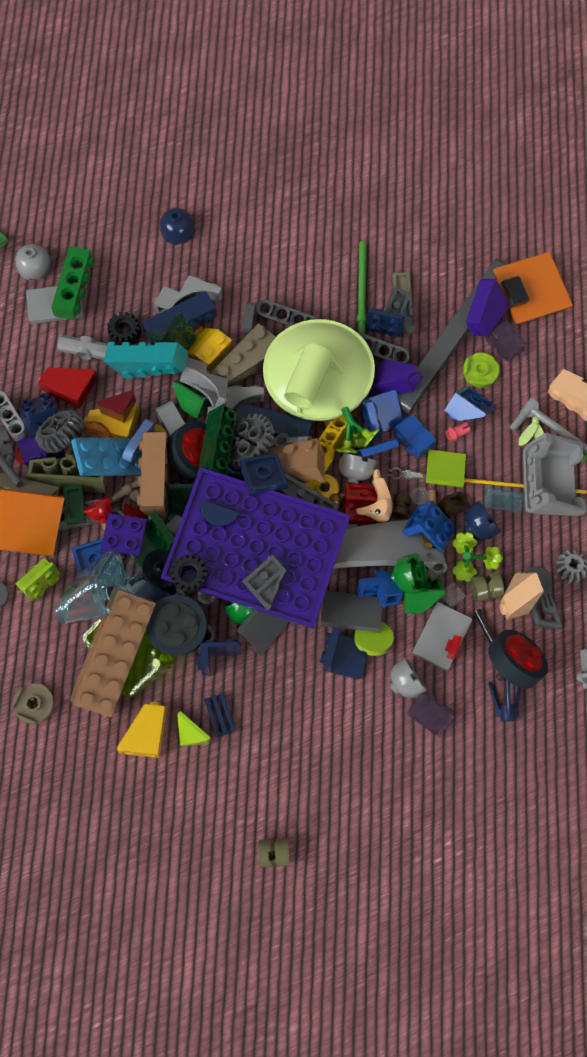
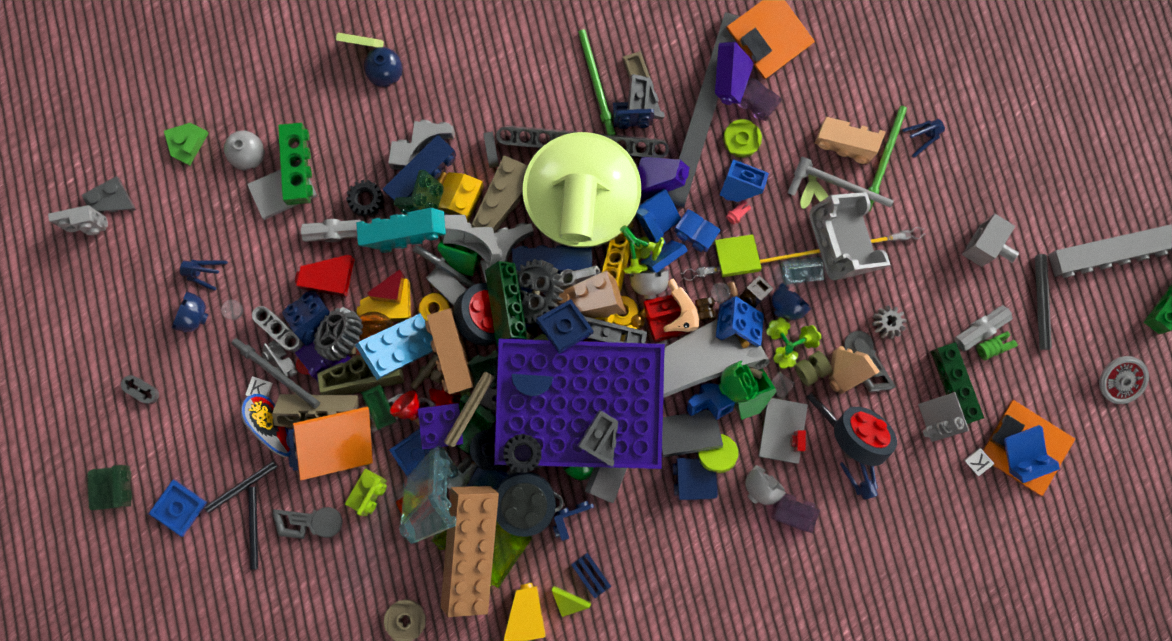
camera: 20 degrees left, 10 degrees up
(132, 449) = (420, 327): medium blue beam -> none
(153, 524) = (469, 409): none -> dark tan axle
(162, 197) = (359, 40): none -> yellowish green tile
(170, 397) = (439, 263): none -> dark grey sword

